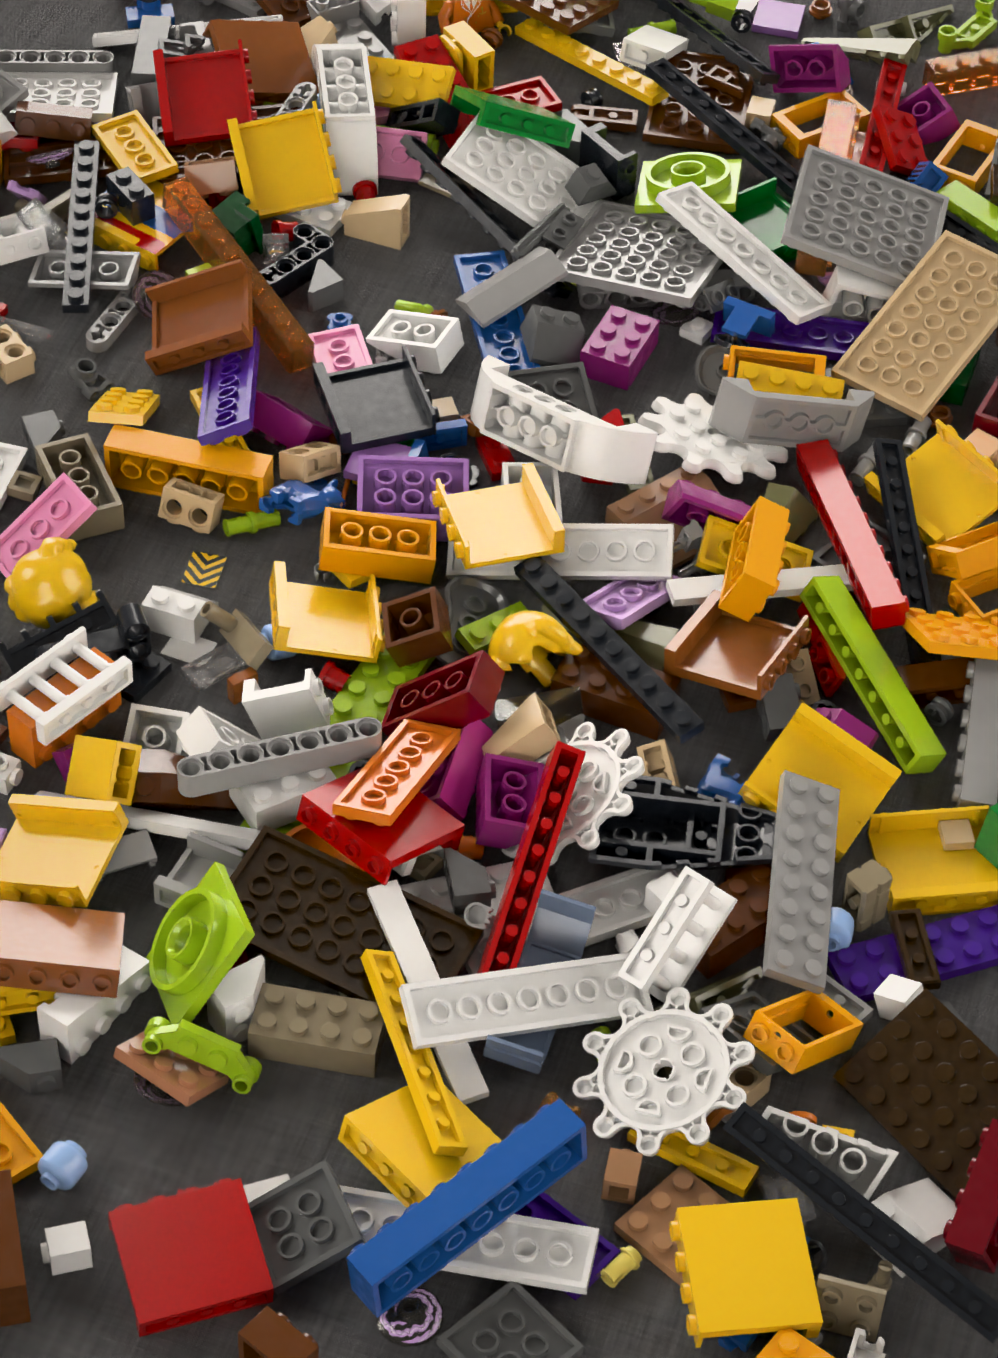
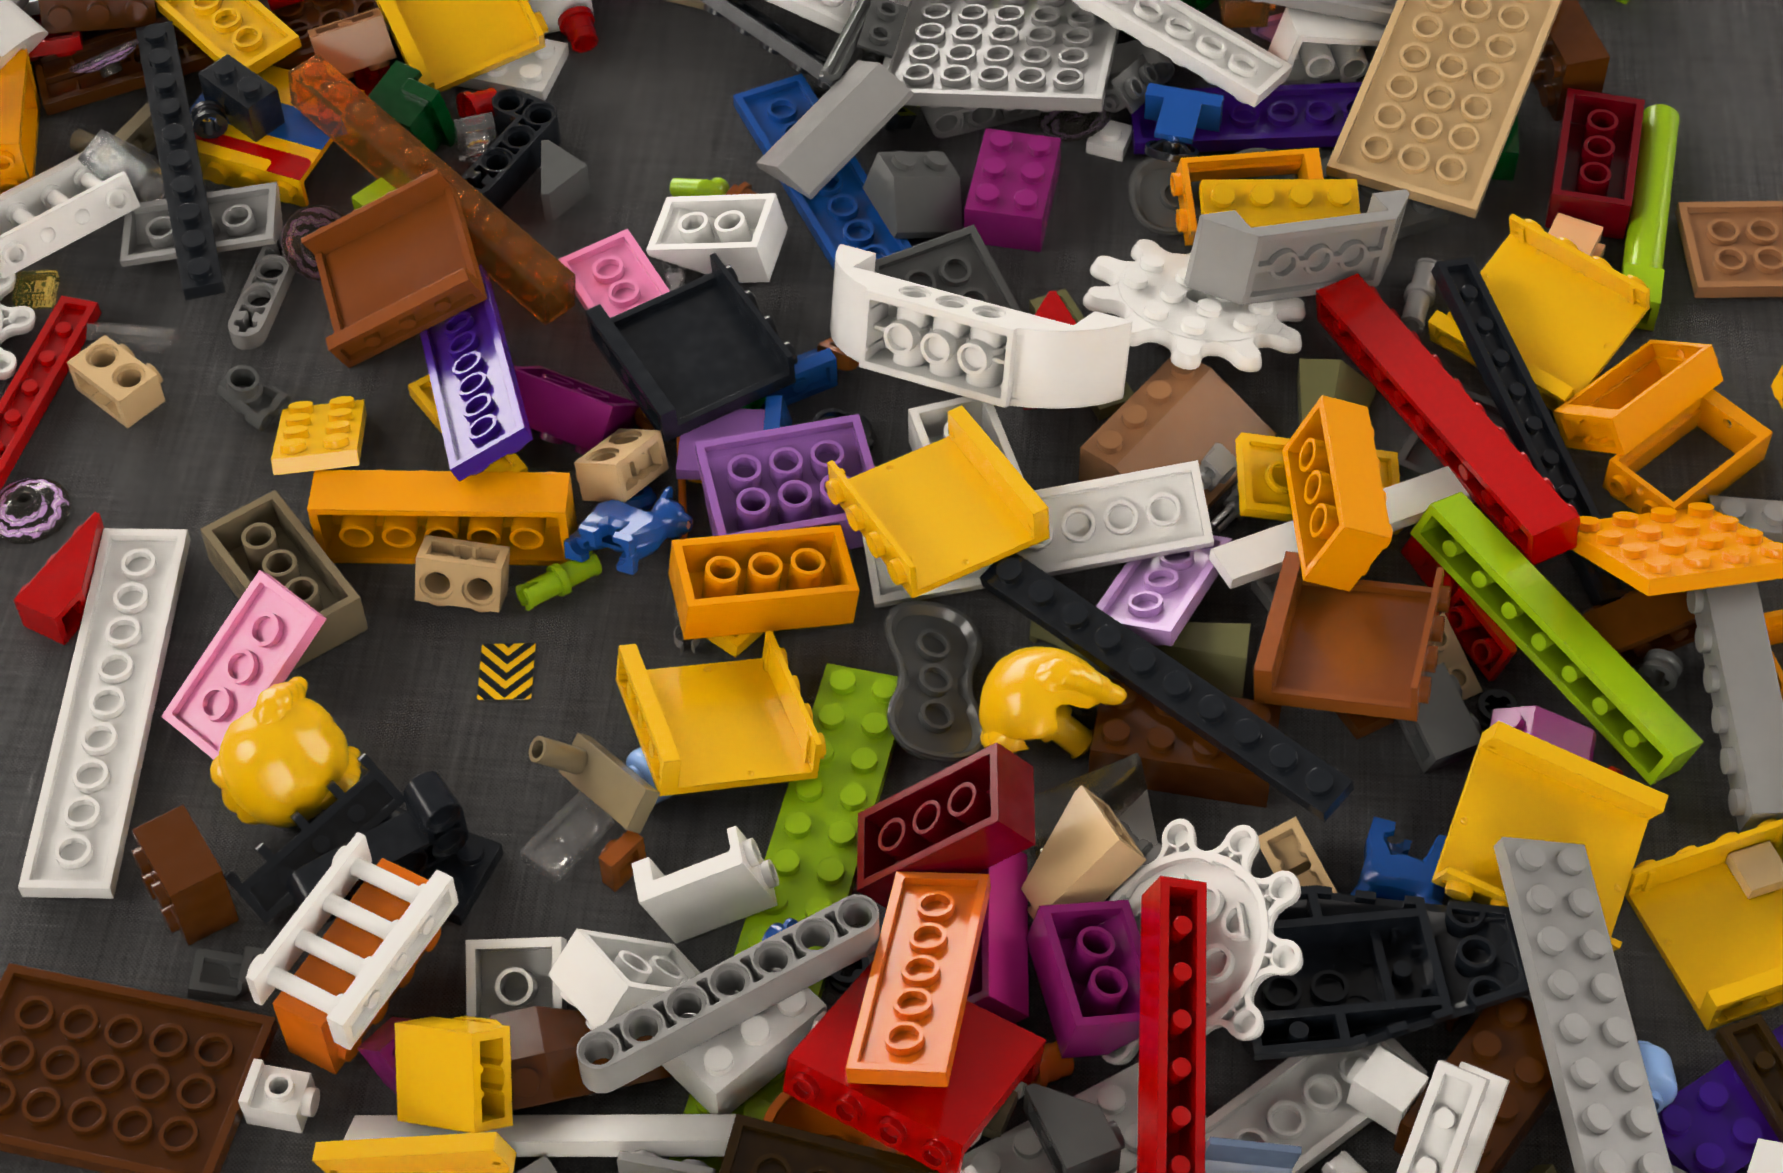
camera: 10 degrees left, 5 degrees up
(23, 192) = (86, 121): lavender tile -> none
(24, 485) = (197, 592): dark tan plate -> none
(41, 429) = (202, 497): slope -> none
(175, 613) = (486, 756): white slope -> none
(187, 651) = (518, 808): white sticker -> none
(333, 677) = (758, 815): red piece -> none
(339, 320) = (596, 228): plate -> none
(379, 220) = (610, 63): tan slope -> none
(417, 627) = (867, 710): reddish brown brick -> none
(446, 408) = (794, 332): tan tile -> none
(477, 634) = (960, 690): lime plate -> none
(493, 455) = (886, 397): red plate -> none
(690, 502) = (1200, 418): magenta slope -> none
(867, 894) = (1676, 1007): dark tan brick -> none
(916, 436) = (1471, 238): light grey pin -> none
(942, 413) = (1495, 205): dark orange plate -> none

